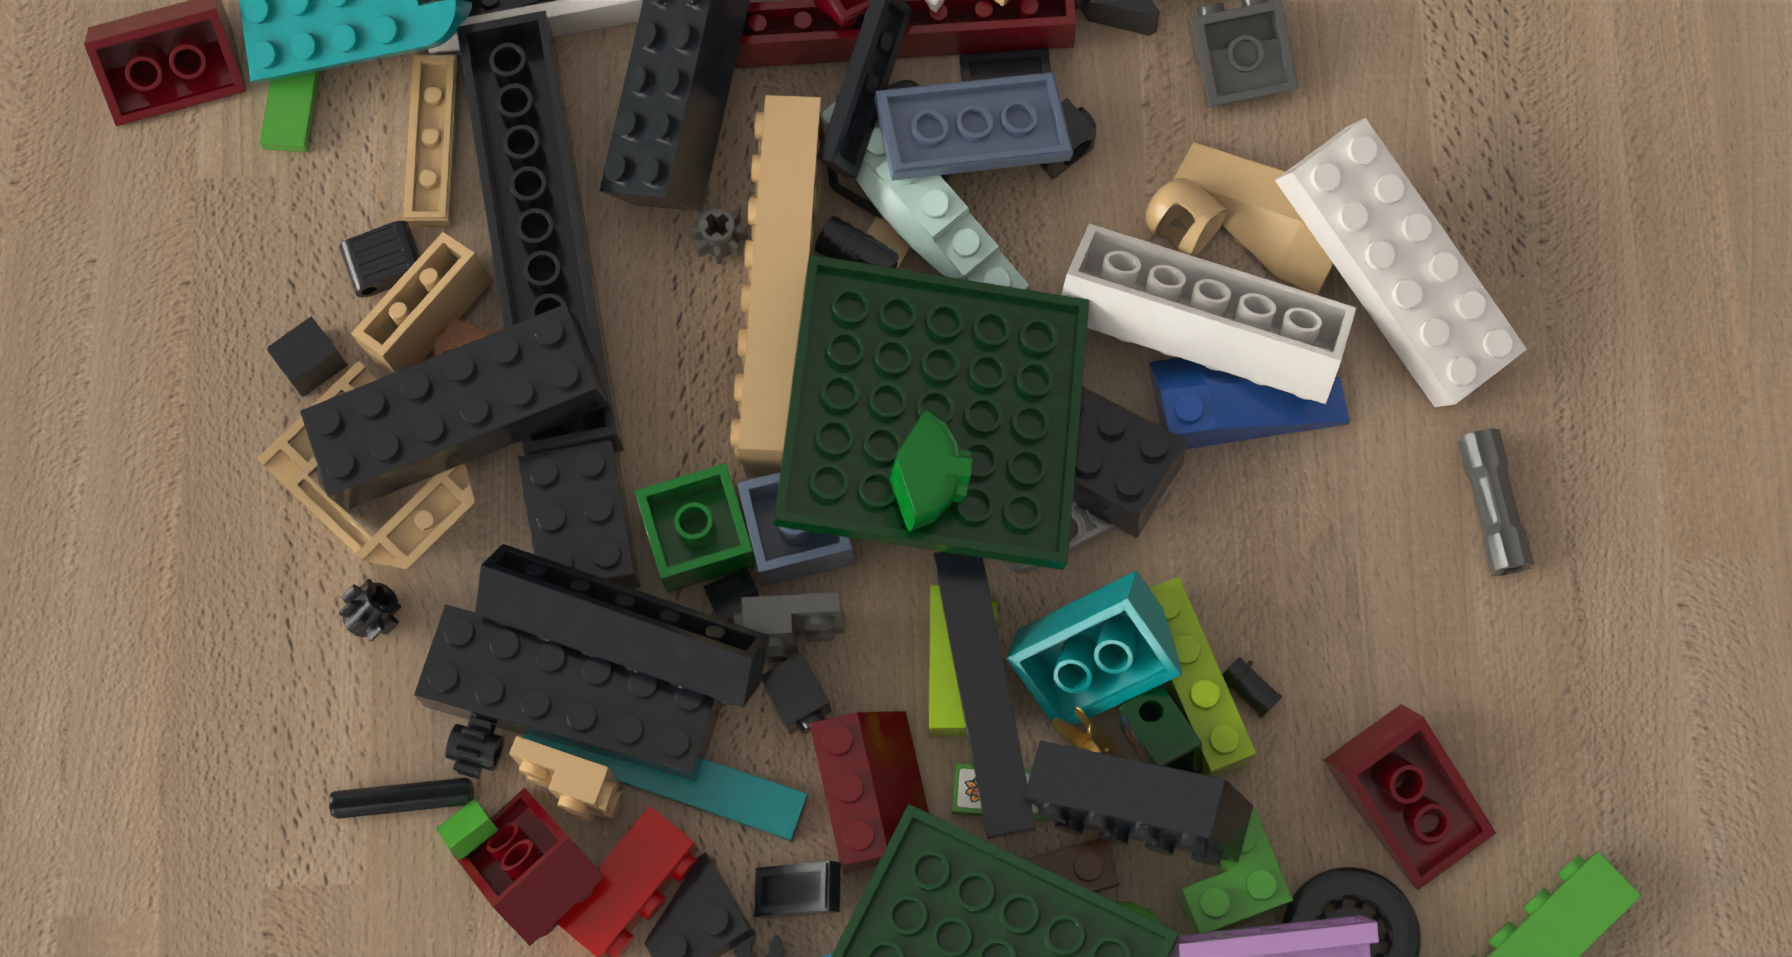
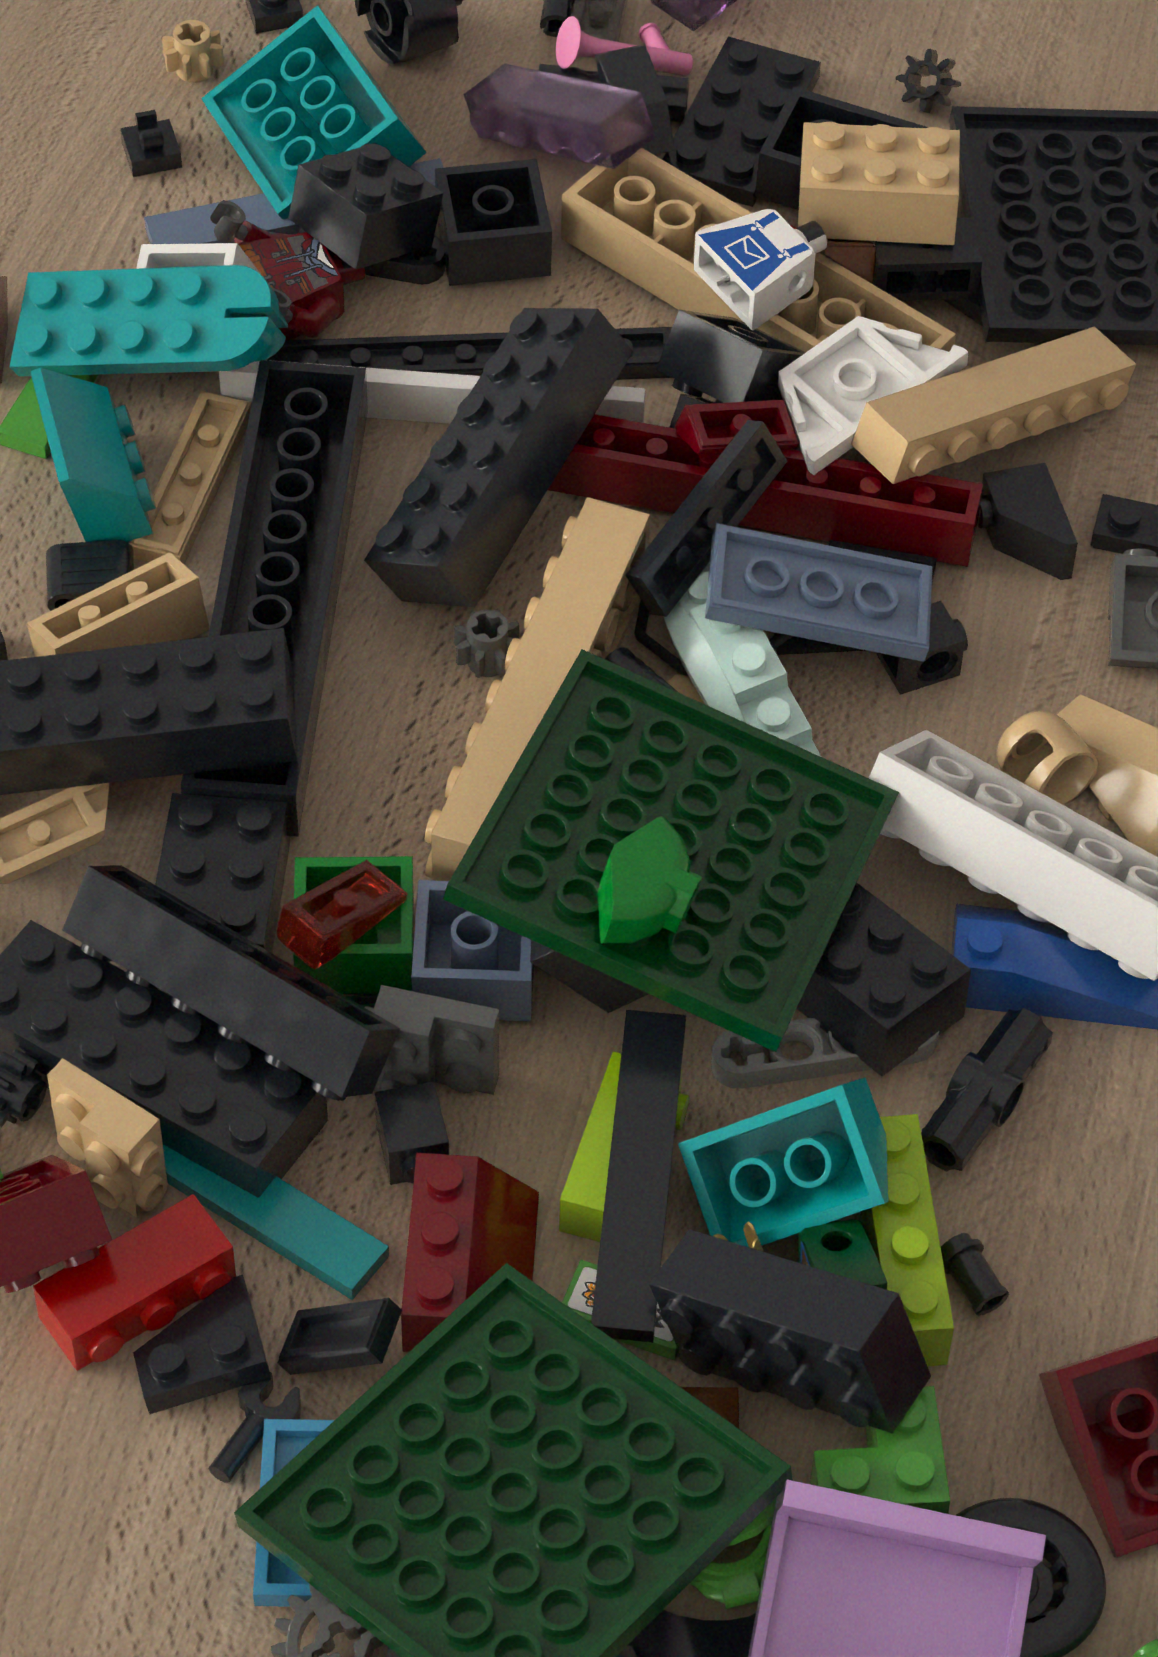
camera: 10 degrees right, 20 degrees down
(350, 155) = (94, 457): none -> teal slope
(686, 534) = (337, 913): none -> clear red slope
(1218, 525) = (985, 1089): none -> black piece

